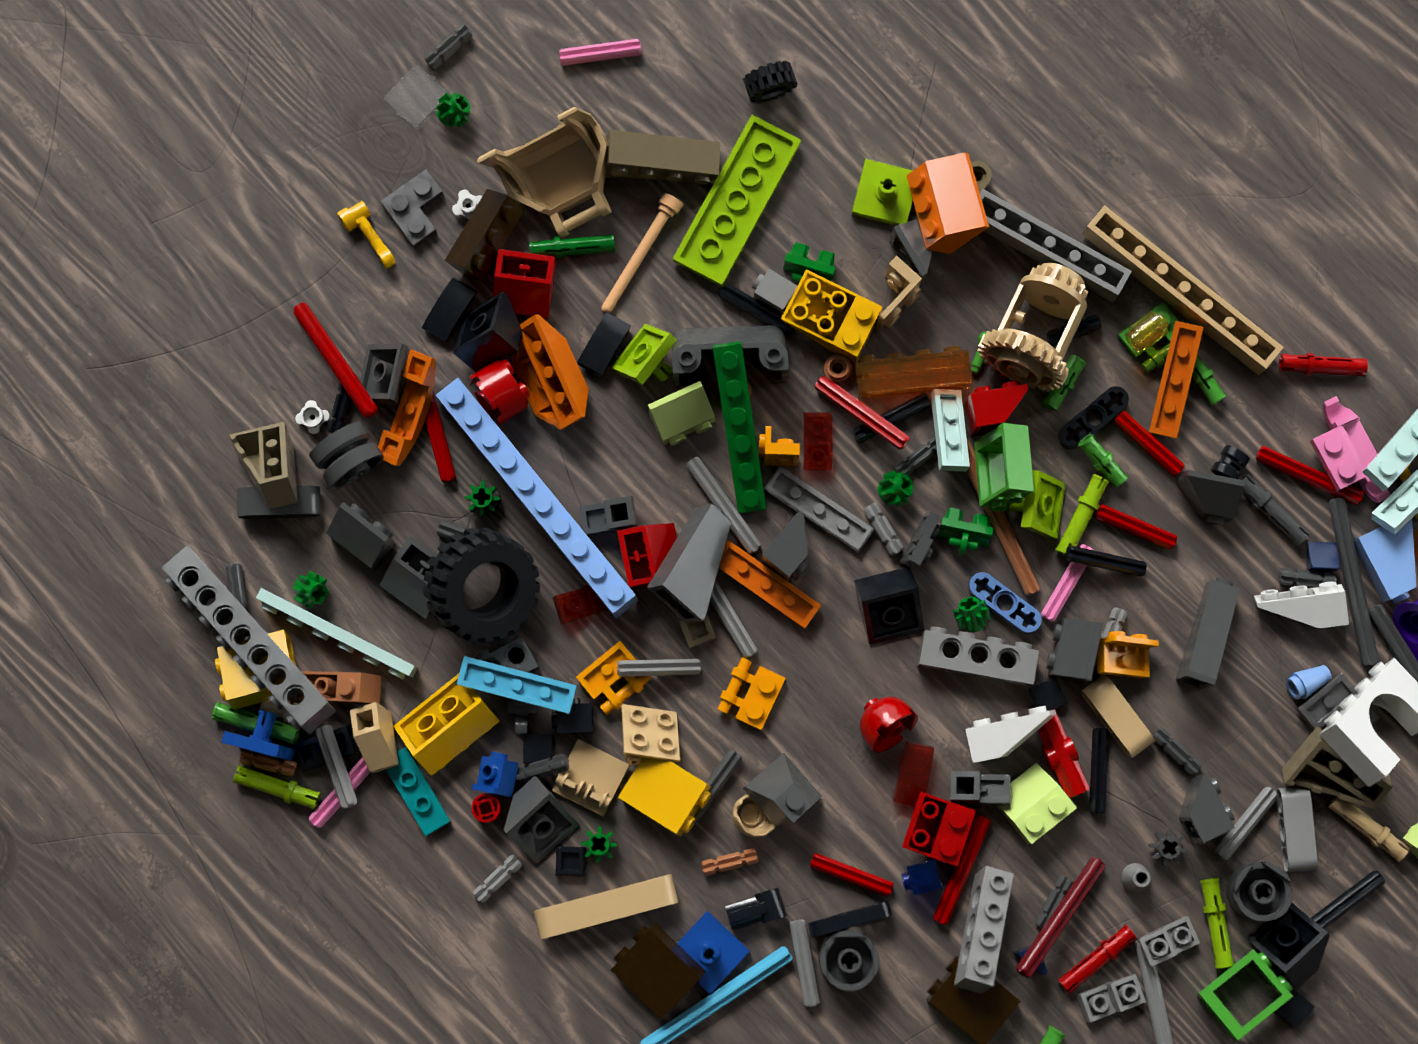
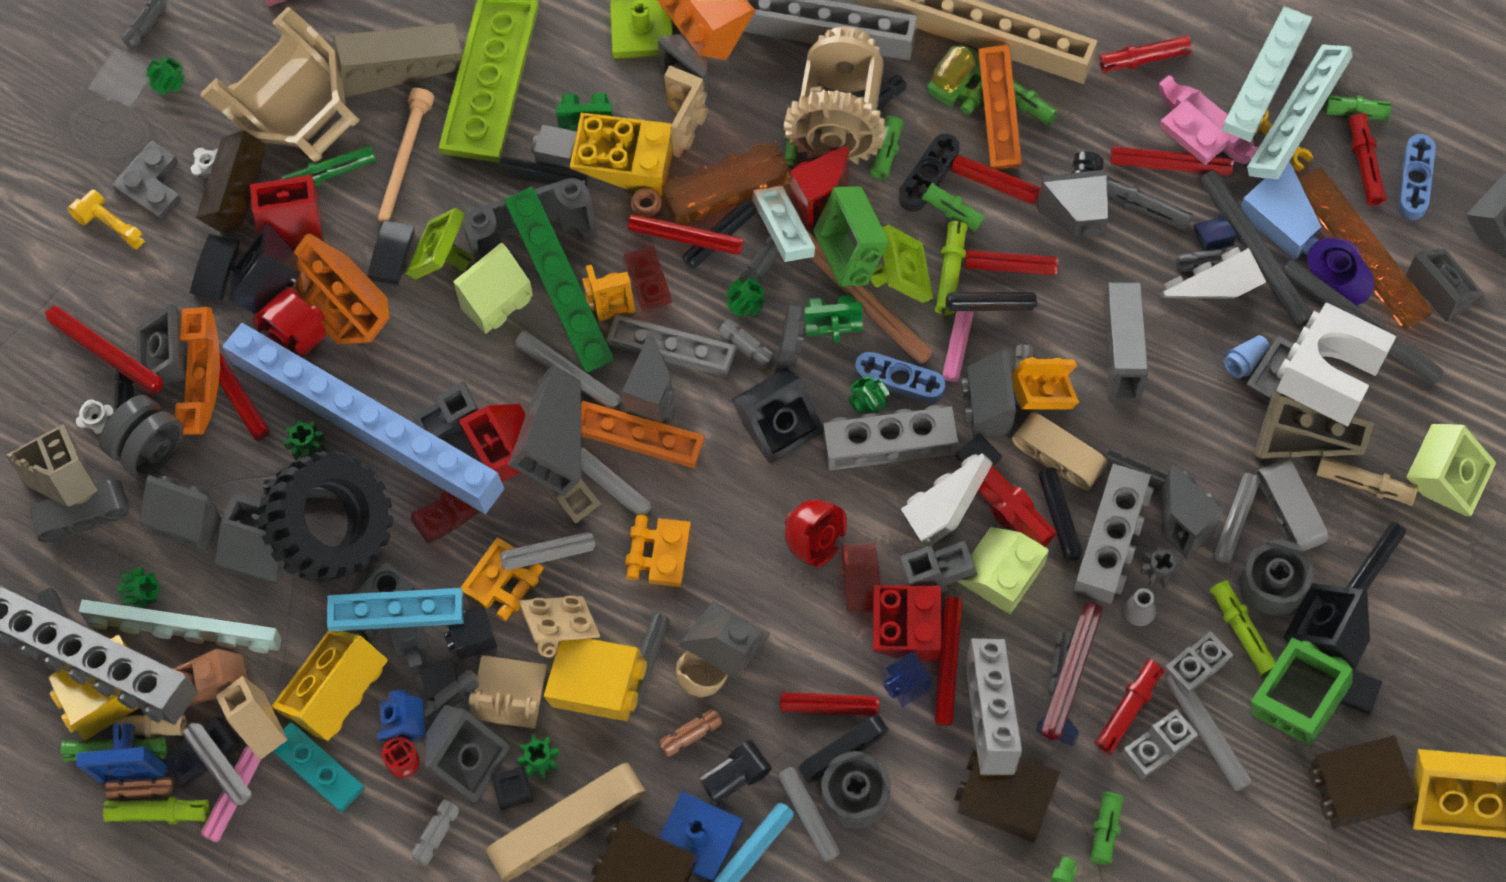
camera: 15 degrees left, 15 degrees down
(1104, 836) = (1122, 485): none -> light grey brick

